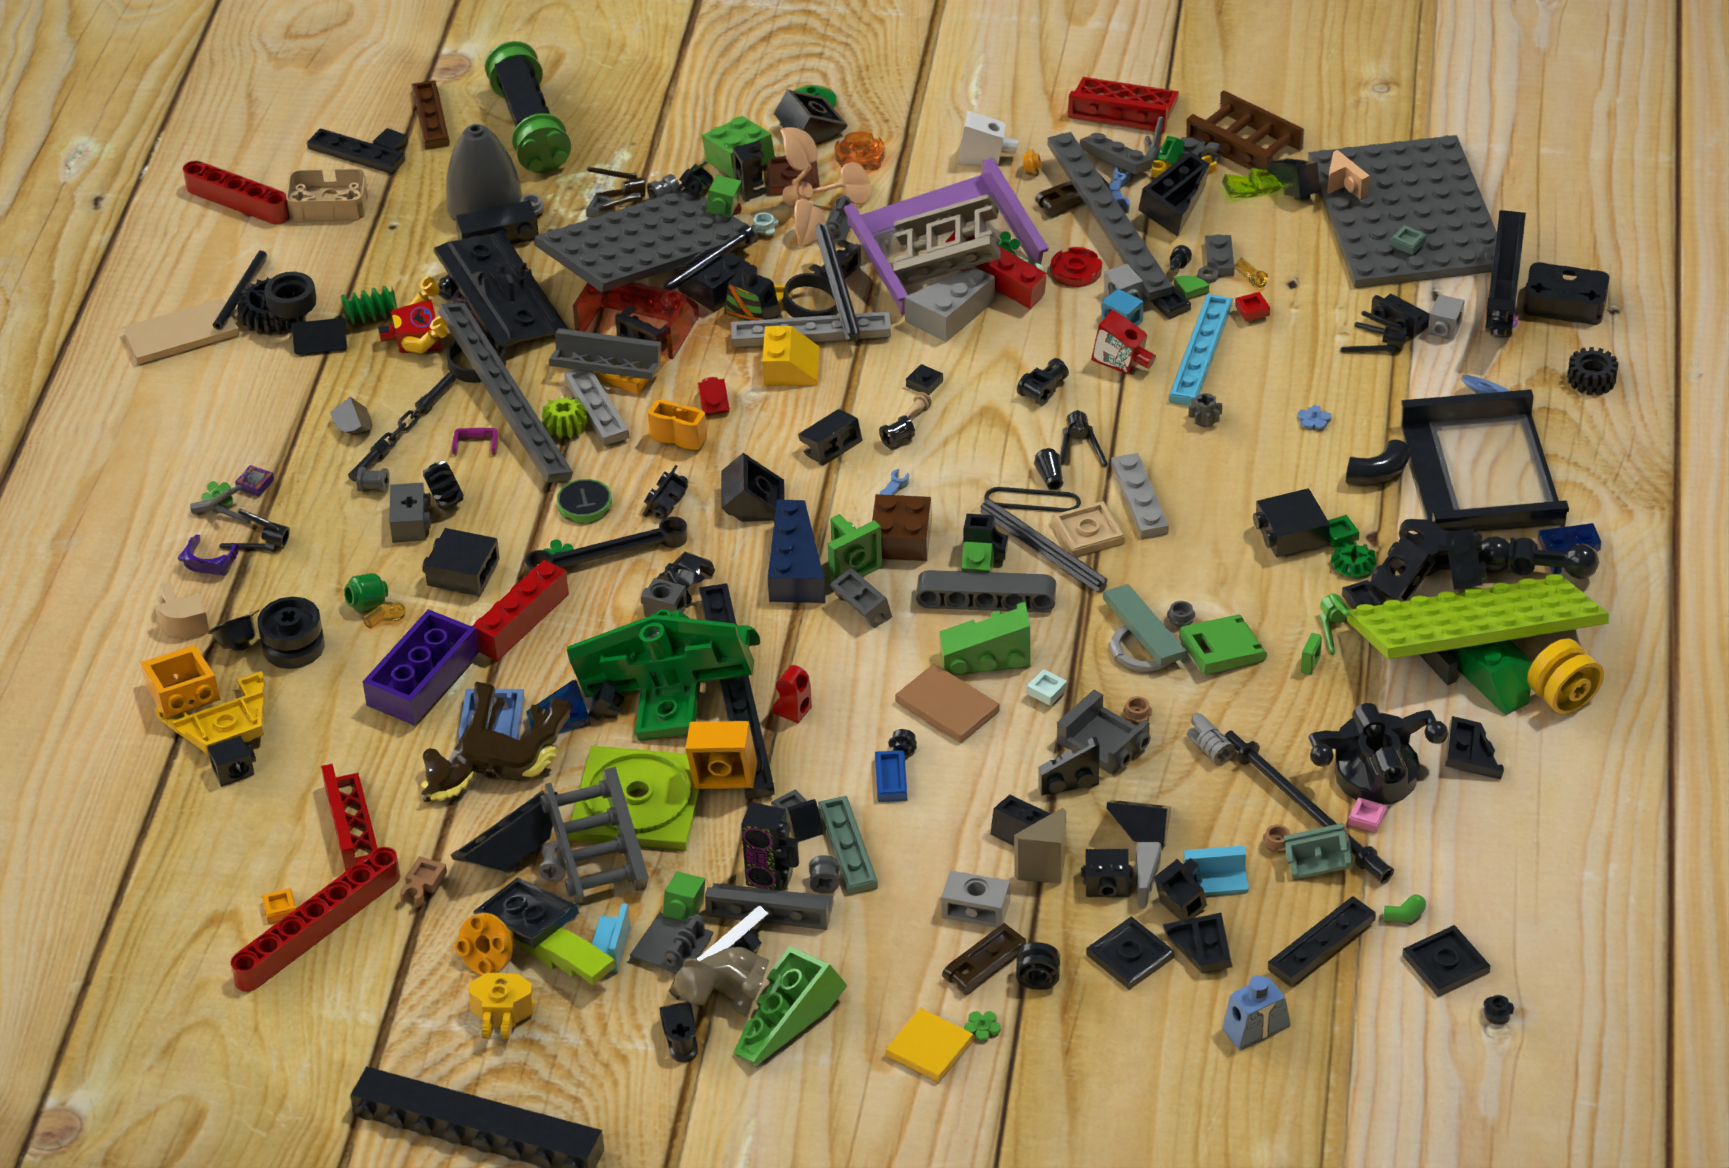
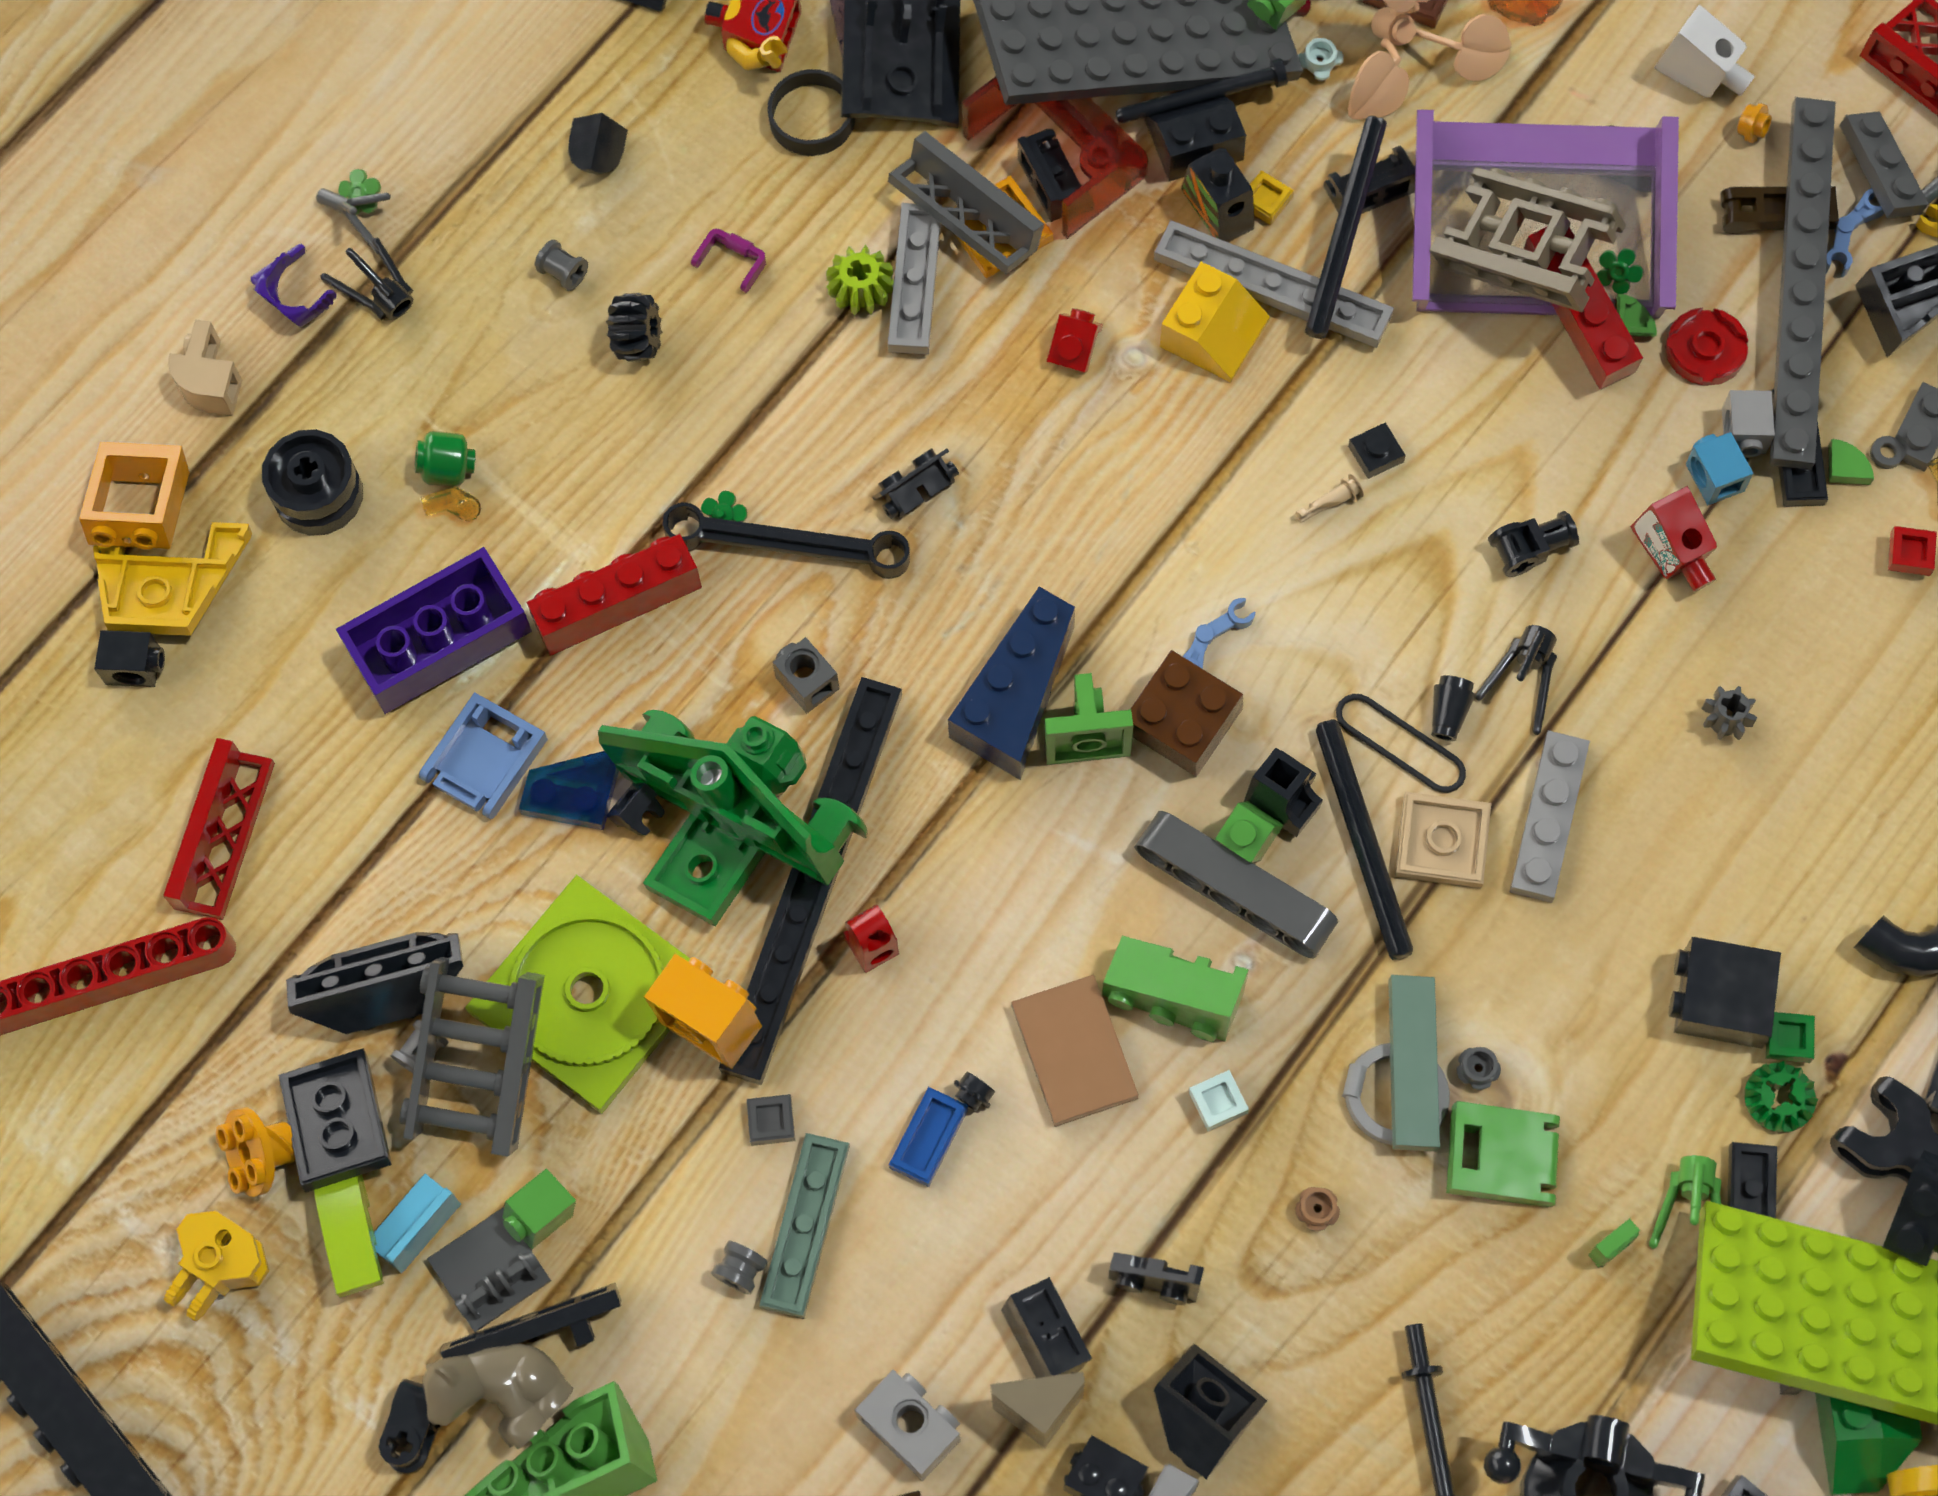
camera: 30 degrees right, 25 degrees up
(235, 633) = (248, 441): black piece -> none
(255, 480) = (421, 187): tile -> none
(278, 904) = (61, 928): light orange tile -> none
(408, 512) = (571, 346): dark grey brick -> none
(422, 877) = (250, 984): medium nougat plate -> none
(423, 405) = (699, 162): black piece -> none
(461, 561) = (586, 471): black brick -> none
(491, 751) = (439, 824): dark brown animal -> none
(506, 393) = (804, 202): dark grey plate -> none
(584, 500) = (808, 437): black tile -> none
(677, 424) = (992, 374): light orange brick -> none
(687, 571) = (850, 647): black helmet -> none
(750, 490) = (1027, 540): black slope -> none
(767, 847) = (670, 1205): black piece -> none
(782, 906) = (638, 1287): dark grey fence -> none
(804, 820) = (769, 1159): black slope -> none
(807, 280) = (1308, 191): black tyre -> none
(831, 436) = (1188, 493): black hinge -> none
(838, 219) = (1431, 93): dark grey hinge -> none
(861, 596) = (1059, 809): dark grey hinge -> none
(902, 423) = (1281, 531): black bush -> none
(950, 303) = (1487, 335): light grey wedge -> none
(1116, 736) = (1245, 1227): dark grey panel -> none
(1180, 257) = (1866, 400): black bar -> none
(1201, 349) = (1793, 590): medium azure tile -> none
(1210, 740) = (1383, 1319): light grey hinge -> none
(1314, 418) = (1881, 800): medium blue plant -> none
(1402, 587) = (1852, 1177): black brick -> none

